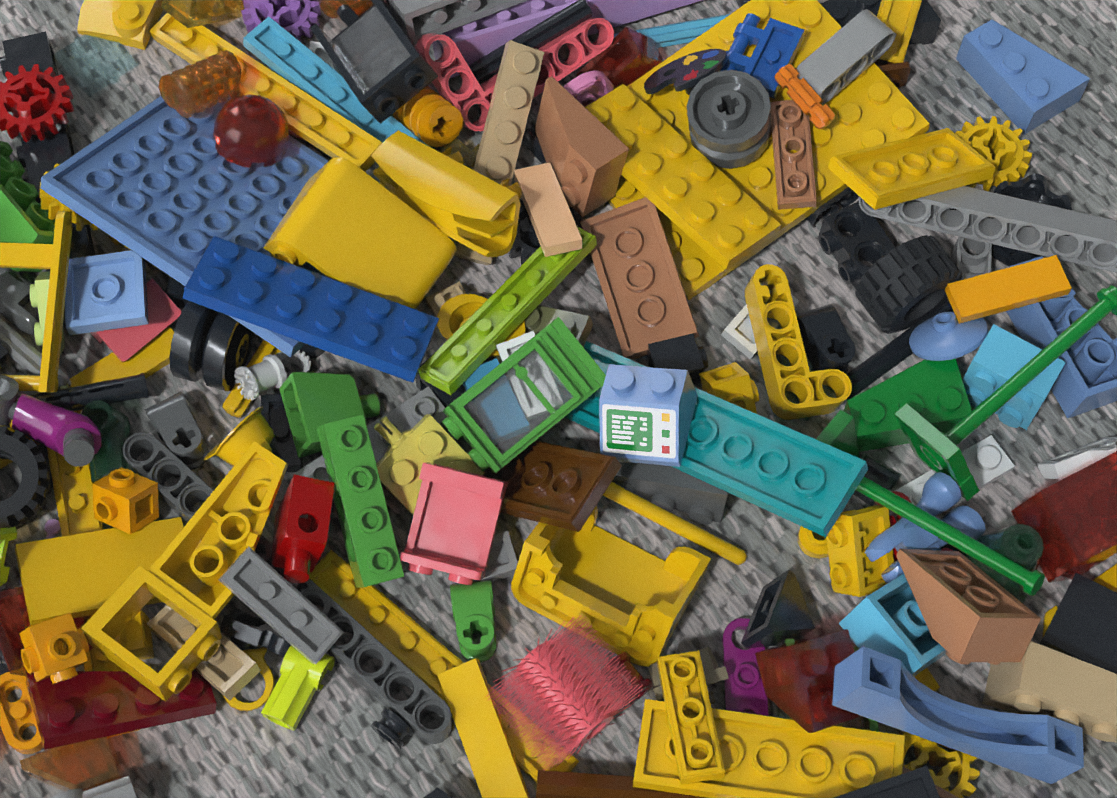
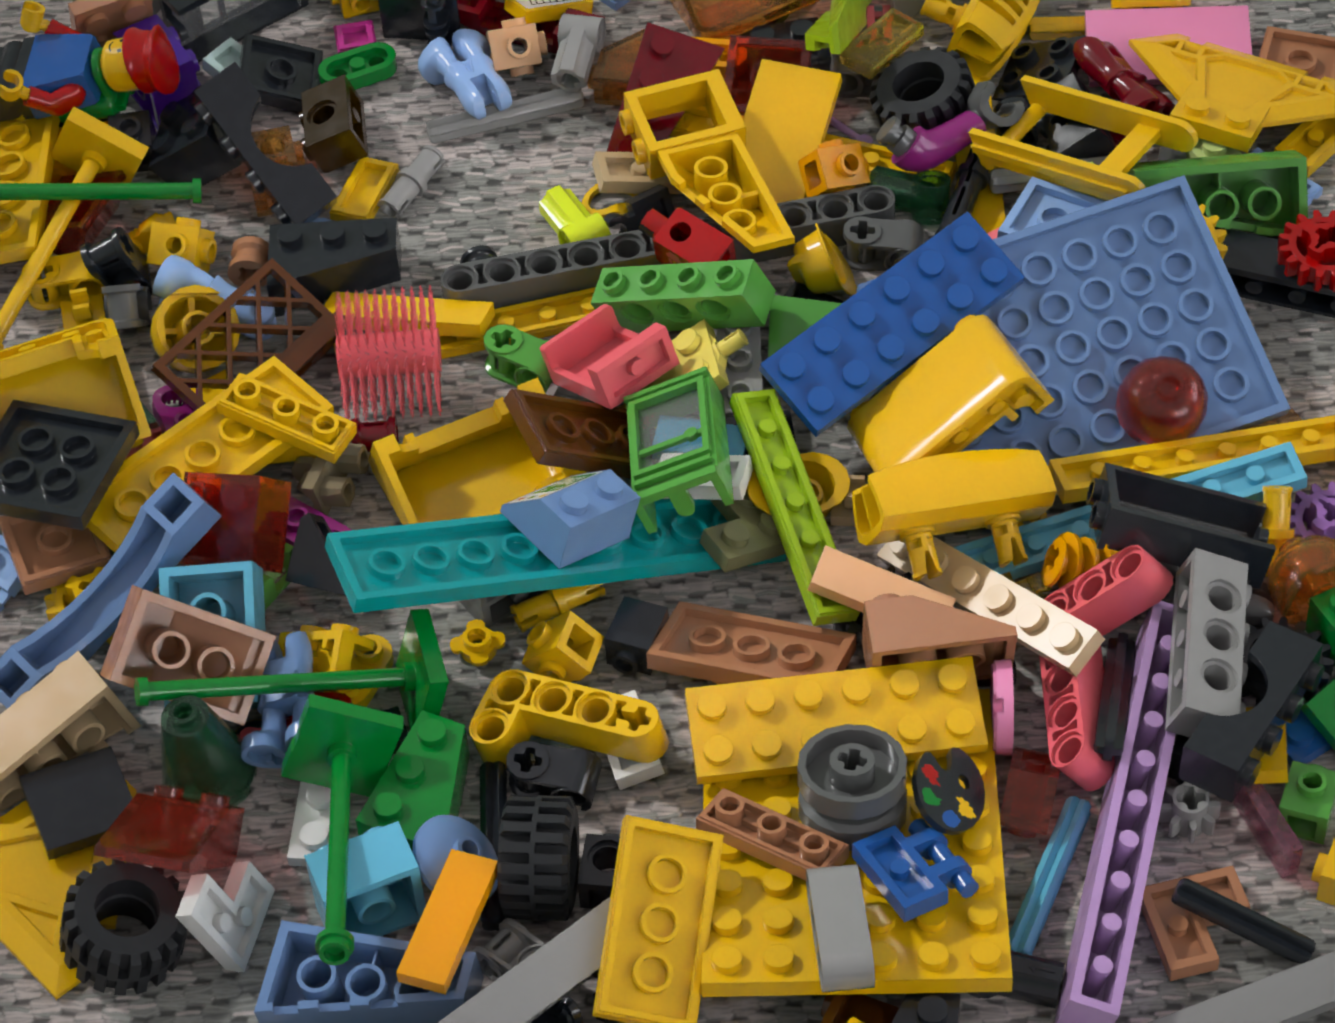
camera: 130 degrees right, 15 degrees down
(54, 649) = (724, 50): light orange brick -> none
(202, 84) = (1242, 379): clear orange piece -> none
(281, 605) = (630, 202): light grey tile -> none
(300, 24) = (1277, 515): none -> yellow pin
(804, 96) = (816, 854): orange axle -> none

